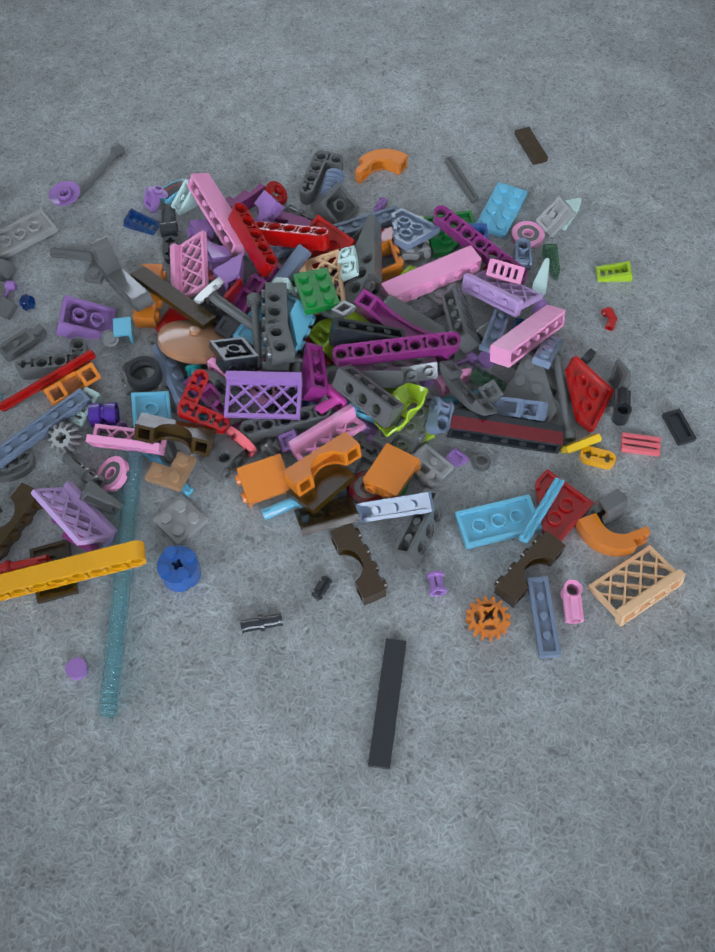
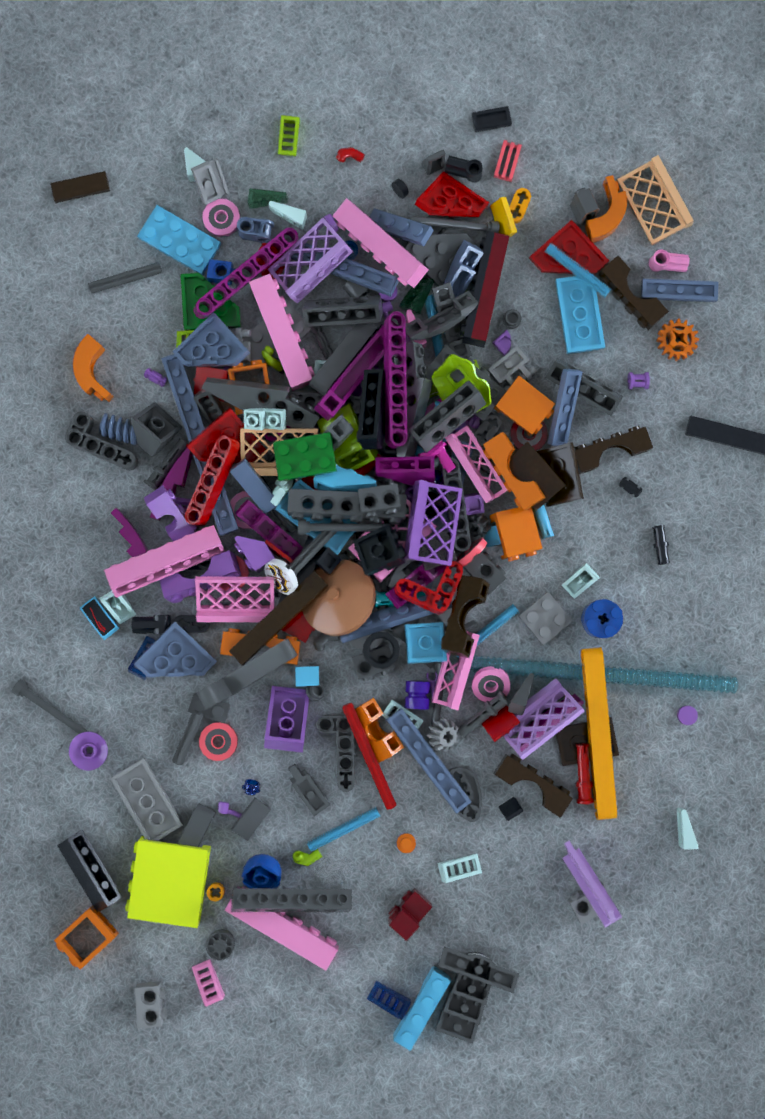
camera: 85 degrees left, 25 degrees up
(66, 270) = (218, 753): none -> coral tile
(70, 481) = (500, 724): none -> red piece
(141, 236) = (174, 655): none -> sand blue plate
(153, 196) = (111, 641): medium lavender bracket -> none
(174, 476) = (501, 622): medium nougat plate -> none
(221, 548) = (580, 580): none -> light aqua slope
(252, 240) = (210, 530): red beam -> none
(277, 188) = (129, 492): red gear -> none
(439, 416) = (473, 349): sand blue piece -> none
(490, 274) = (278, 259): bright pink slope -> none

